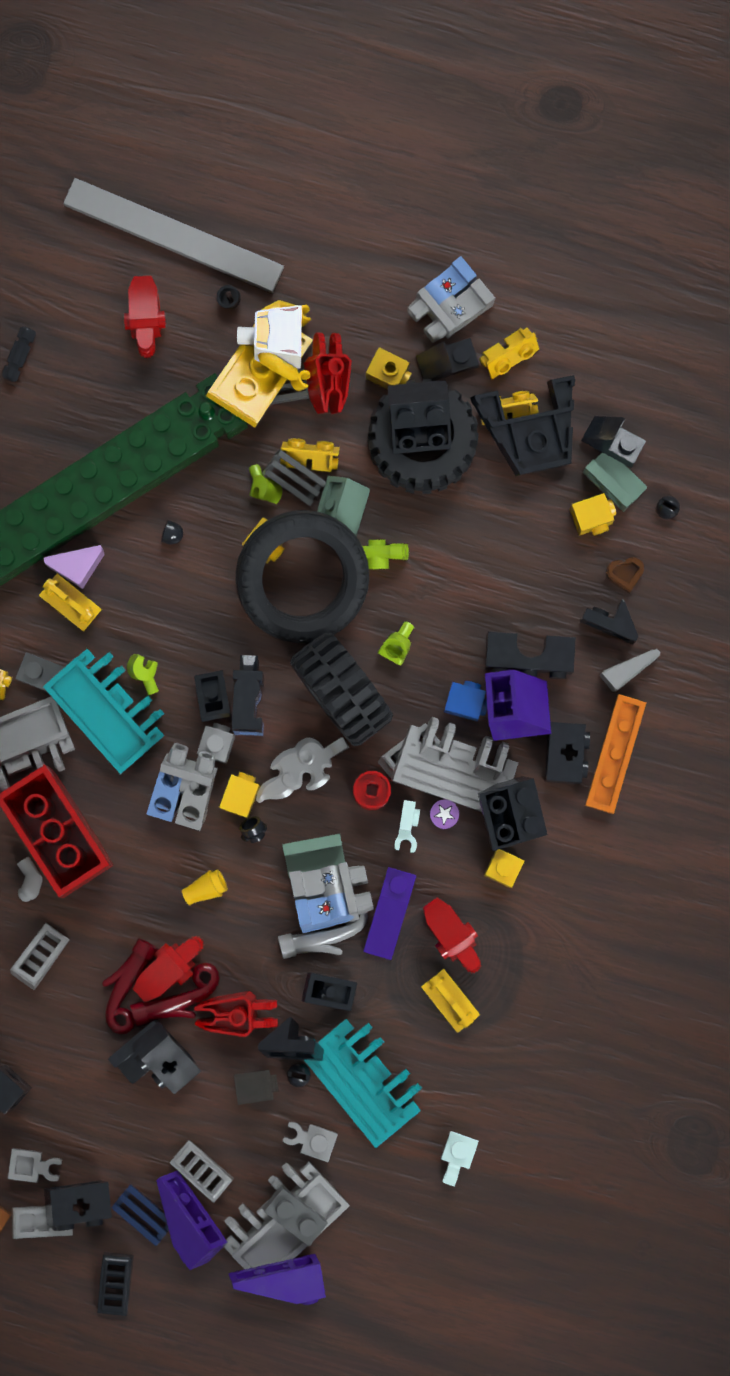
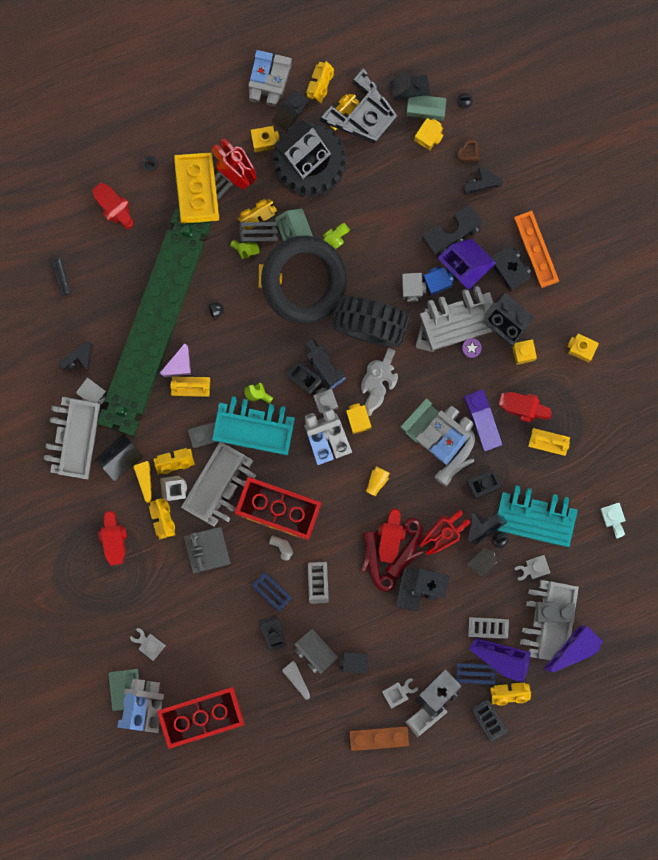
camera: 35 degrees left, 0 degrees up
(155, 1269) = (519, 694): none -> yellow hinge
(173, 235) = (95, 153): light grey tile -> none
(253, 829) = (378, 431): black plate -> none
(278, 340) = (196, 165): torso -> none
(371, 790) = (425, 363): red wheel -> none
(397, 644) = (379, 278): lime piece -> none
(409, 818) = (455, 364): light aqua plate -> none
(429, 685) = (413, 286): none -> light grey brick
(579, 917) = (582, 347): none -> yellow brick
(622, 673) = (507, 206): light grey slope -> none

